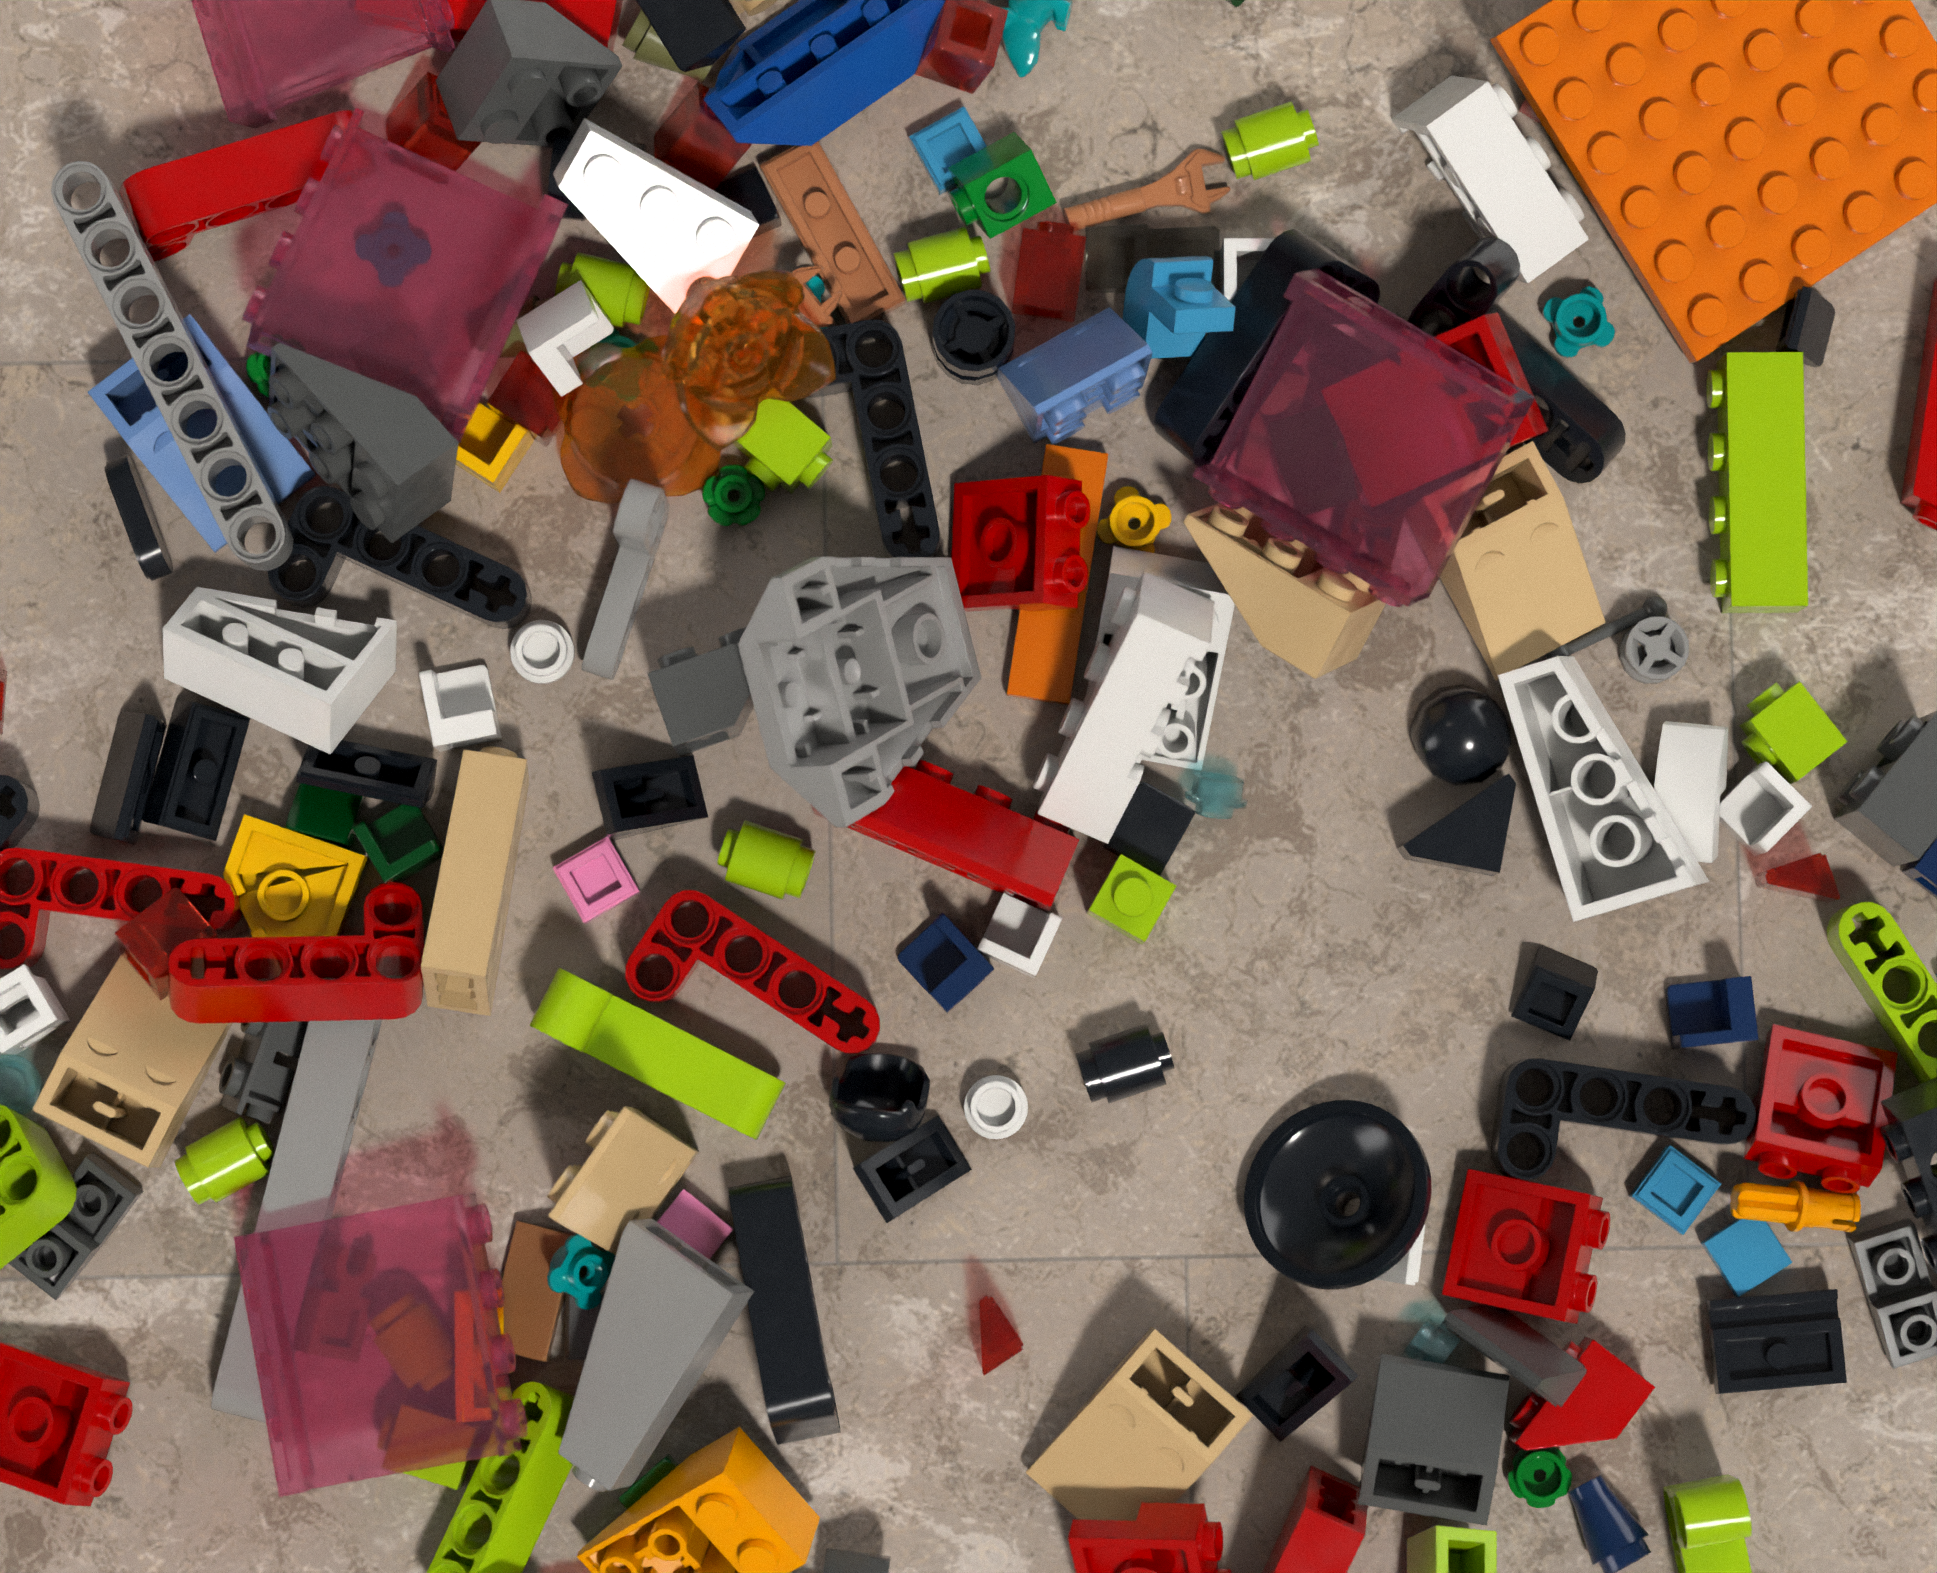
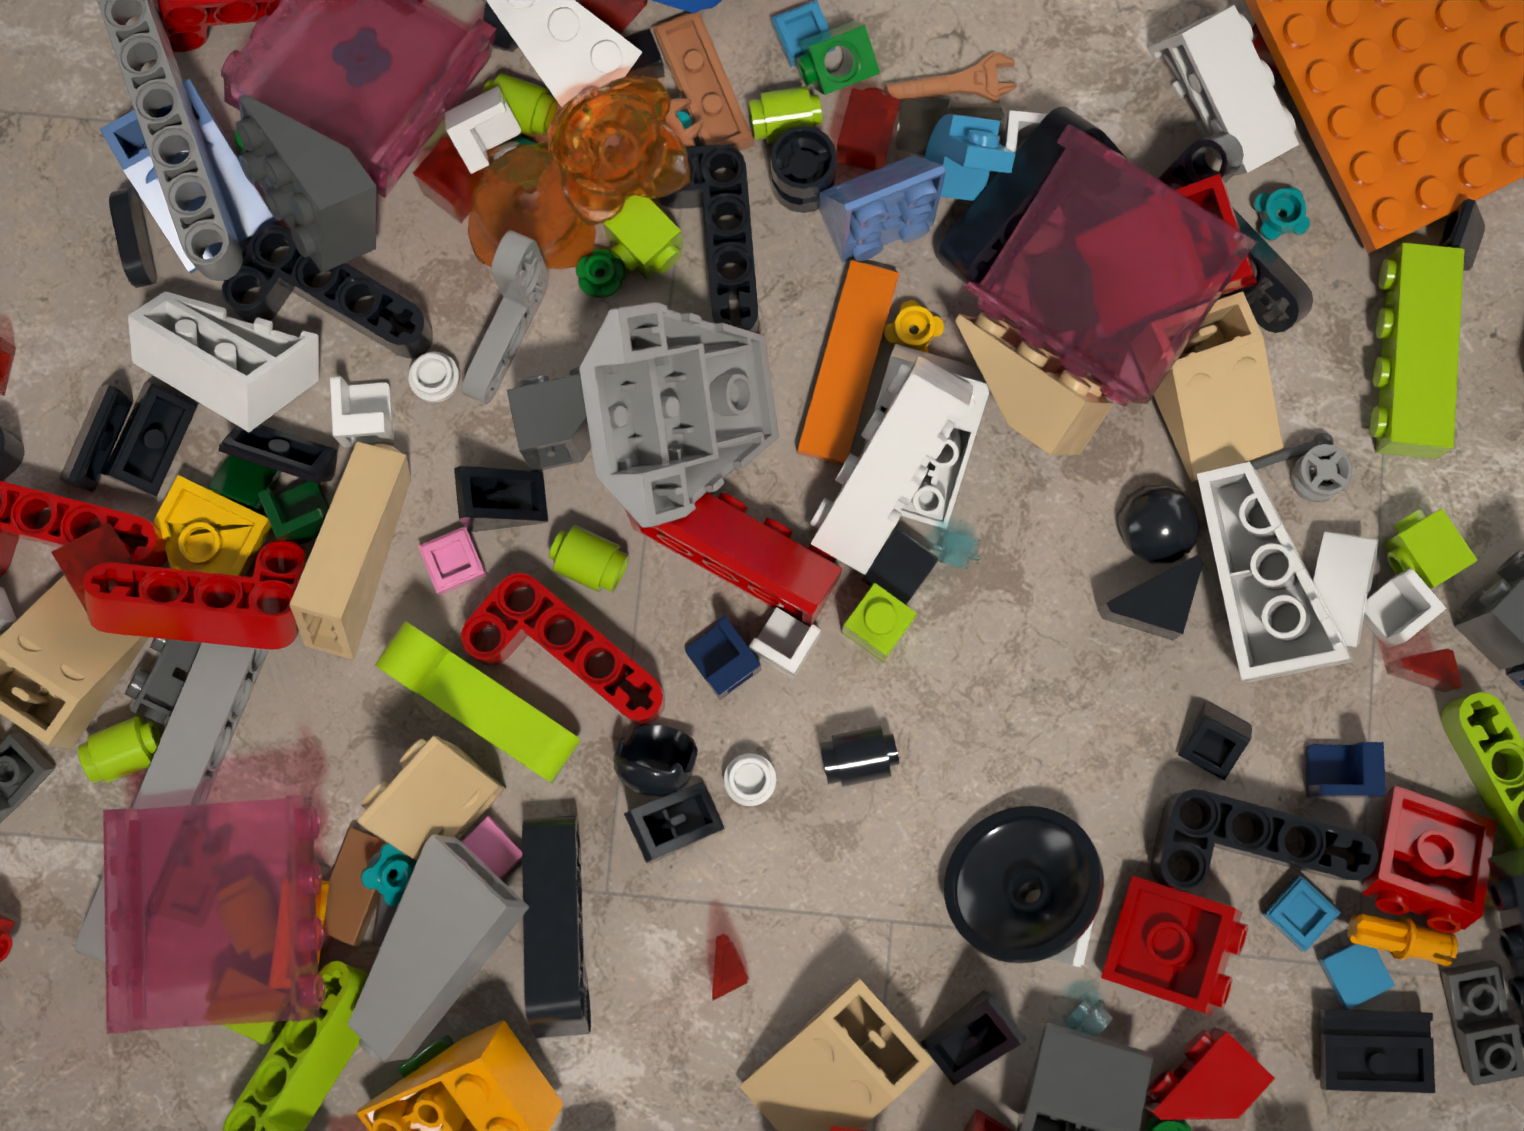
camera: 15 degrees right, 5 degrees down
(492, 448) = (414, 216): yellow panel -> none
(1019, 543) = (821, 330): red plate -> none
(1270, 141) = (1052, 49): lime brick -> none
(1518, 1350) = (1162, 1034): dark grey slope -> none

